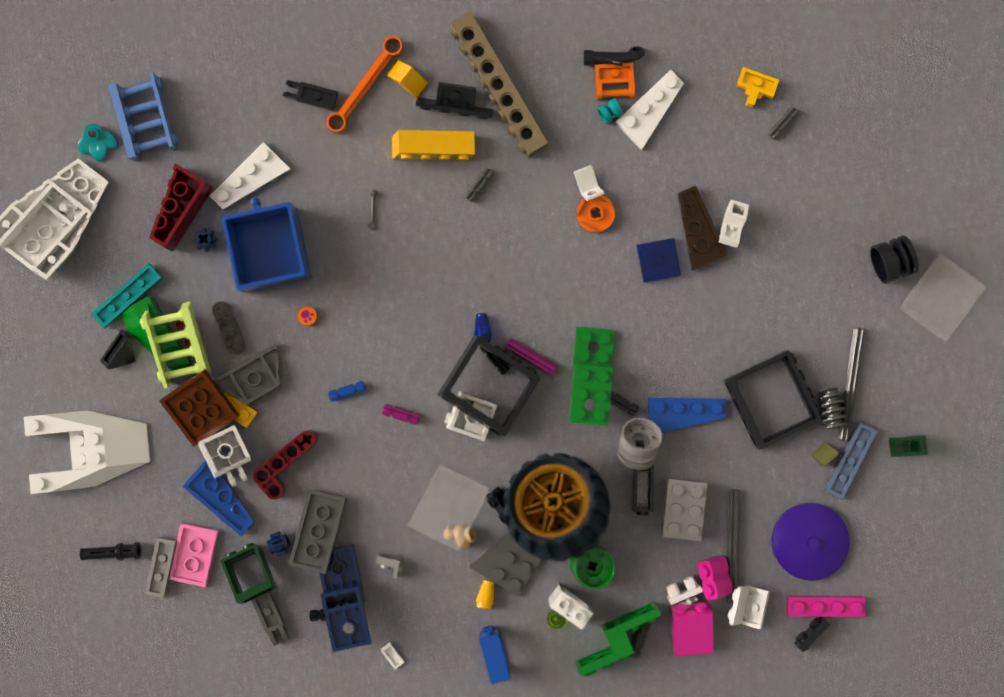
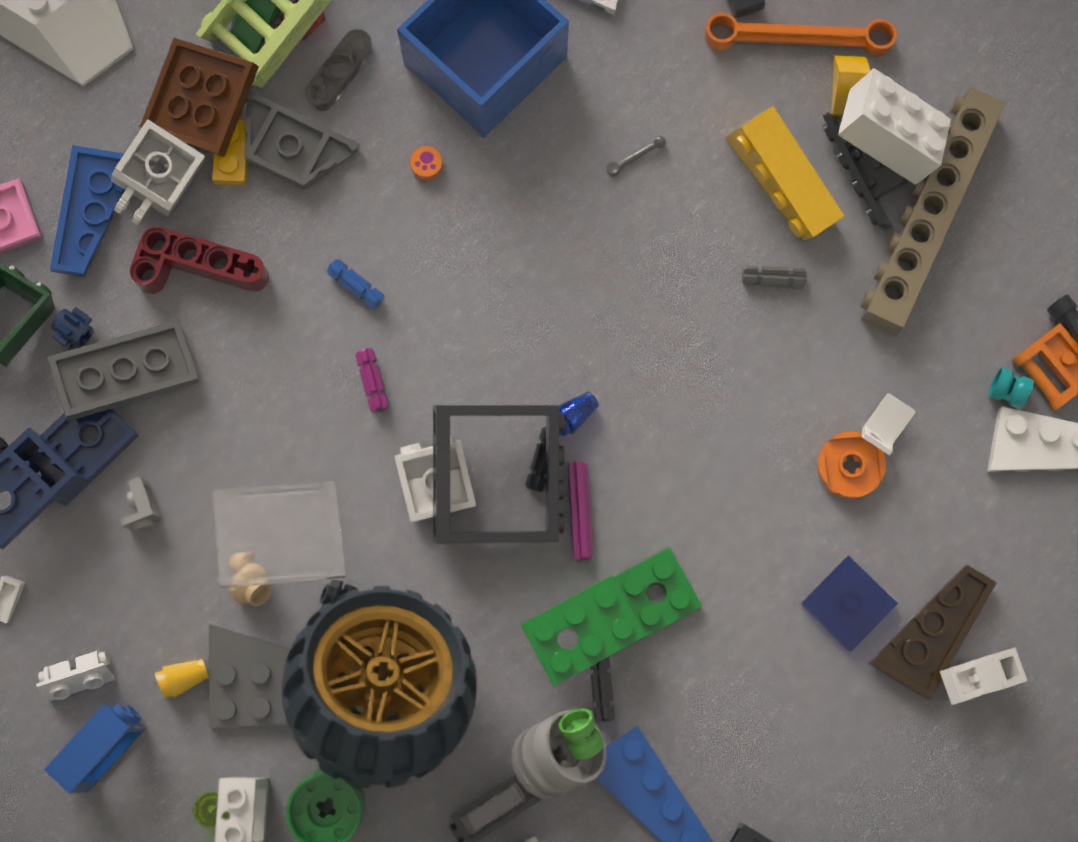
camera: 55 degrees right, 10 degrees down
(447, 76) = (894, 127): none -> white brick
(450, 653) = (61, 681): none -> white hinge
(638, 428) = (582, 736): none -> bright green wheel

